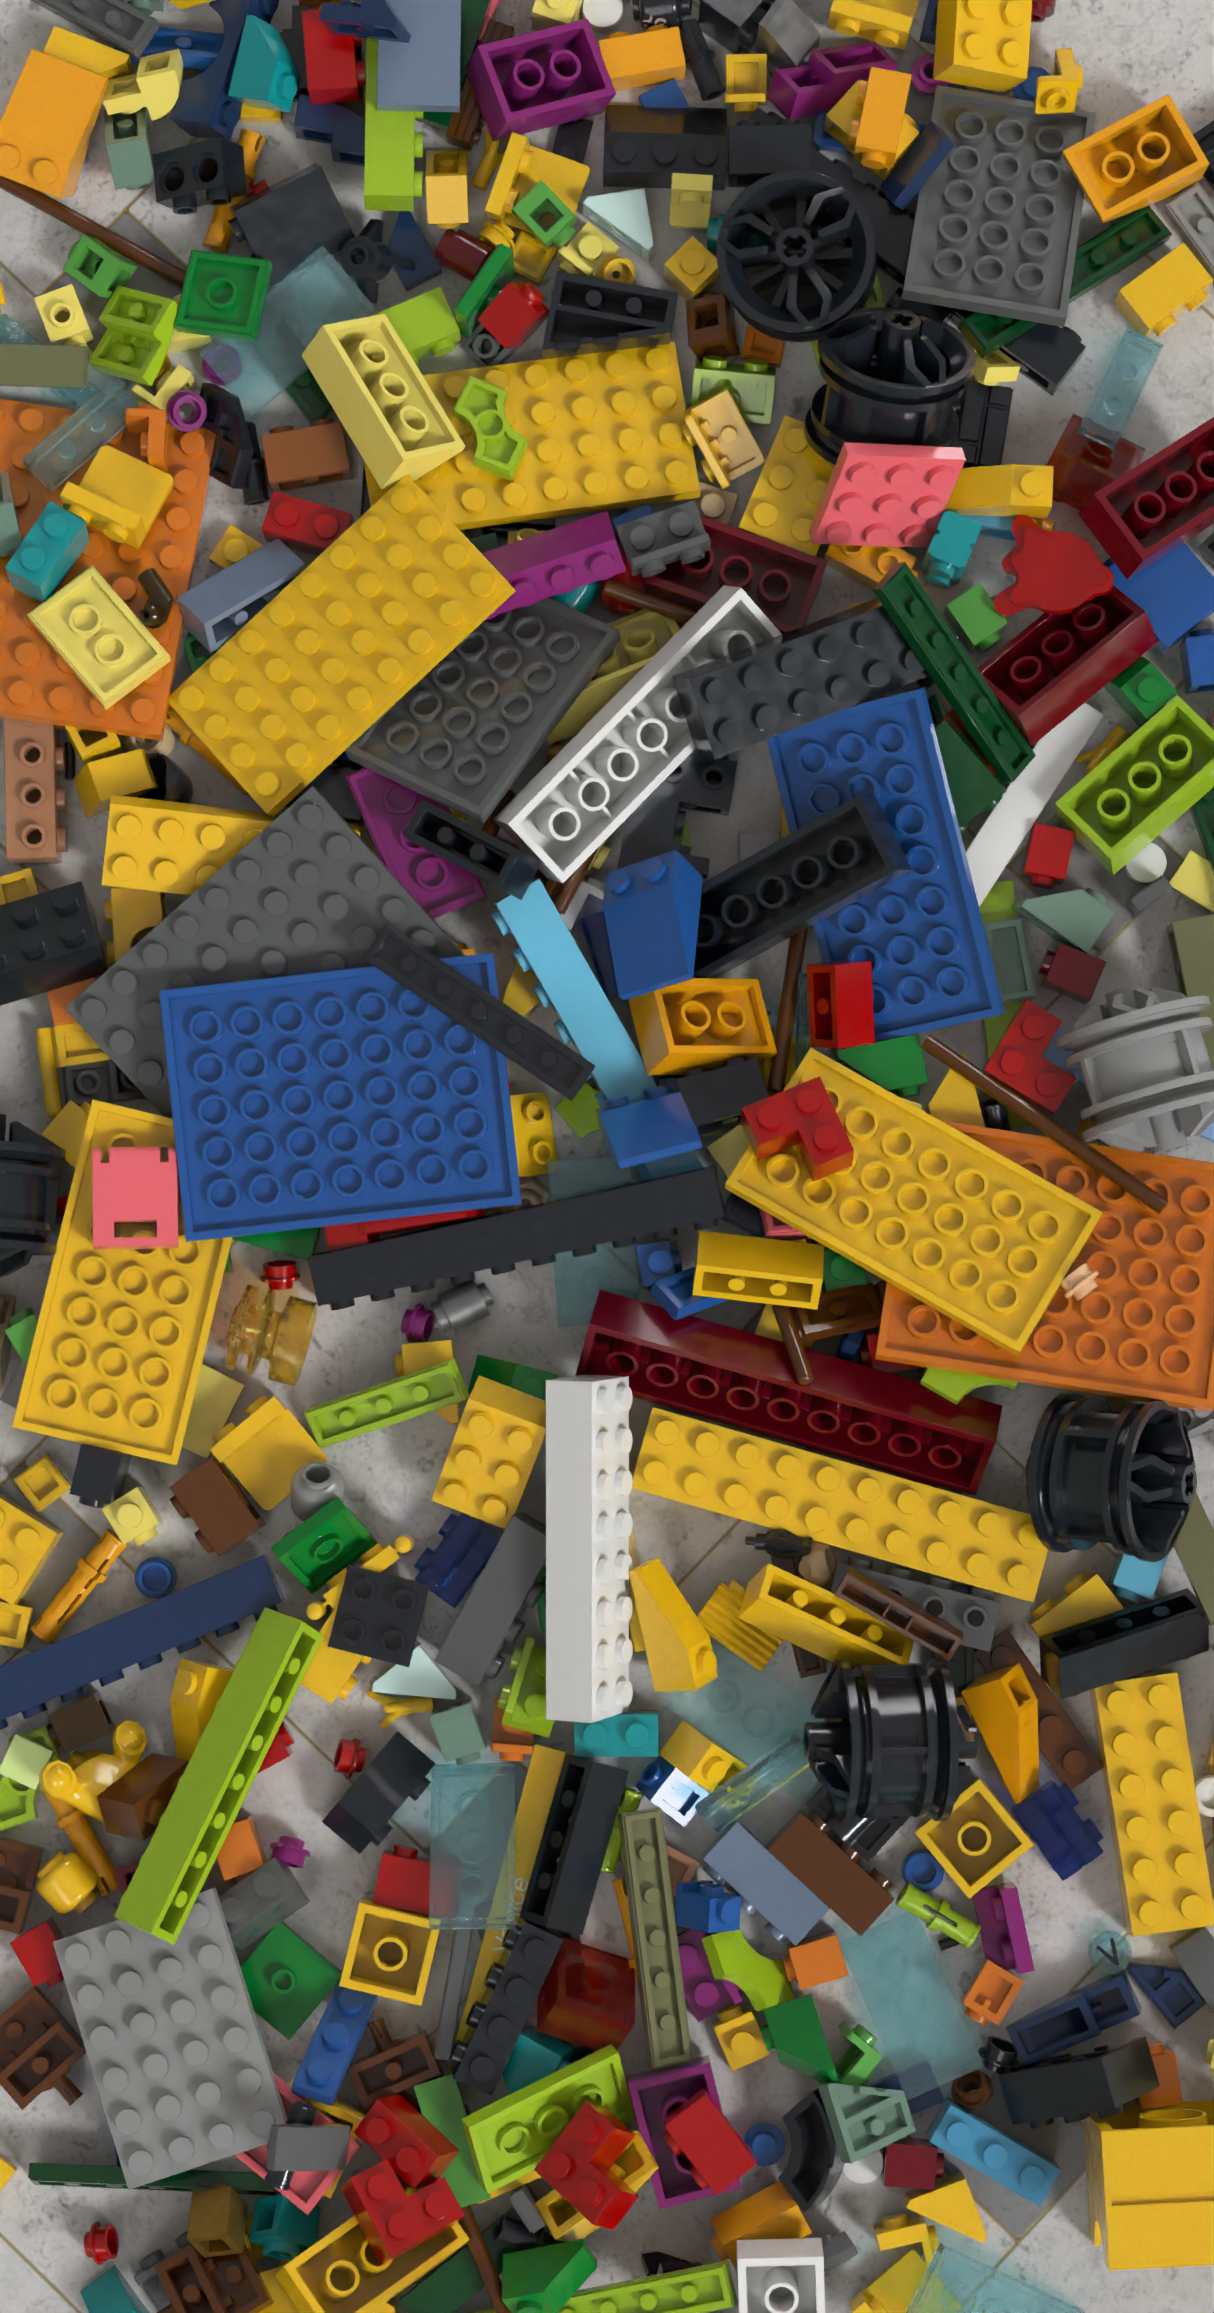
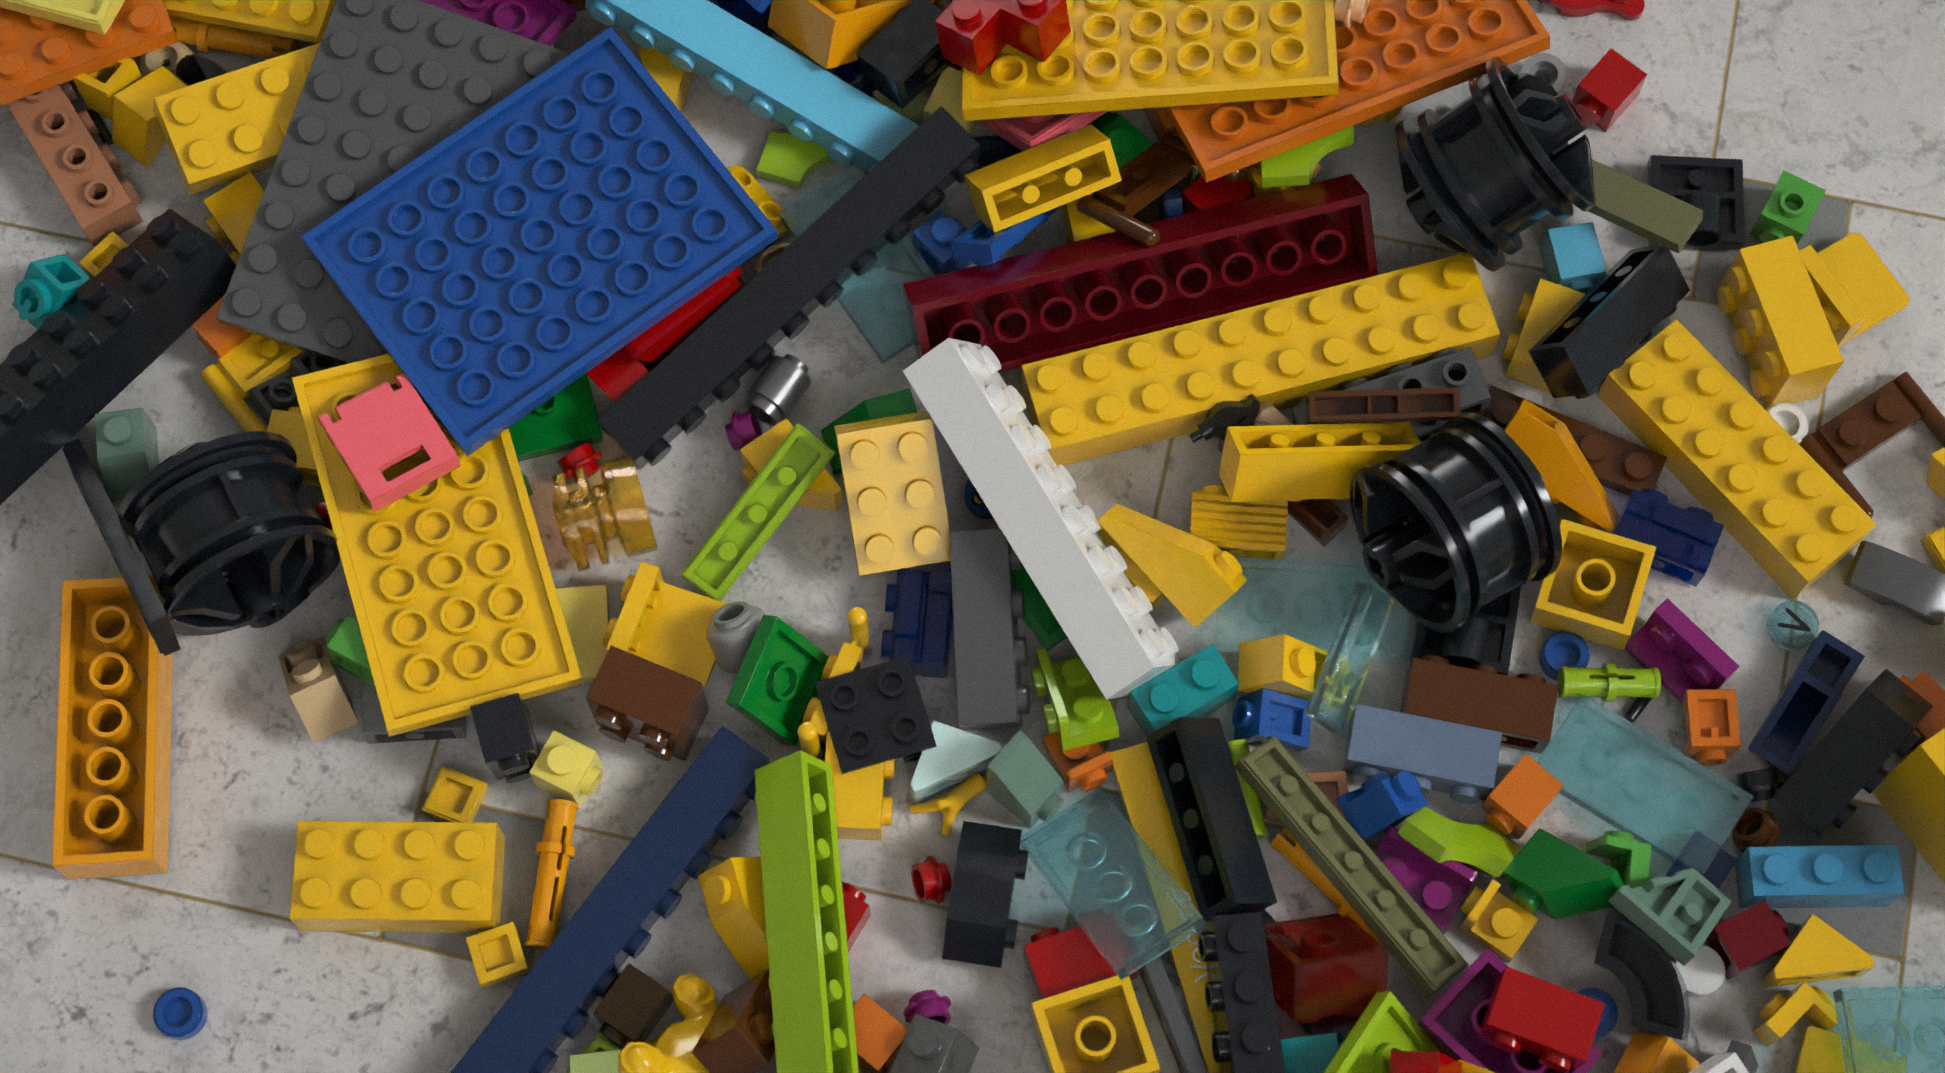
camera: 30 degrees left, 15 degrees down
(155, 1577) = (624, 820): blue plate -> none
(479, 1012) = (629, 81): black tile -> none
(647, 1127) = (856, 105): blue slope -> none
(1168, 1991) = (1874, 629): dark blue tile -> none

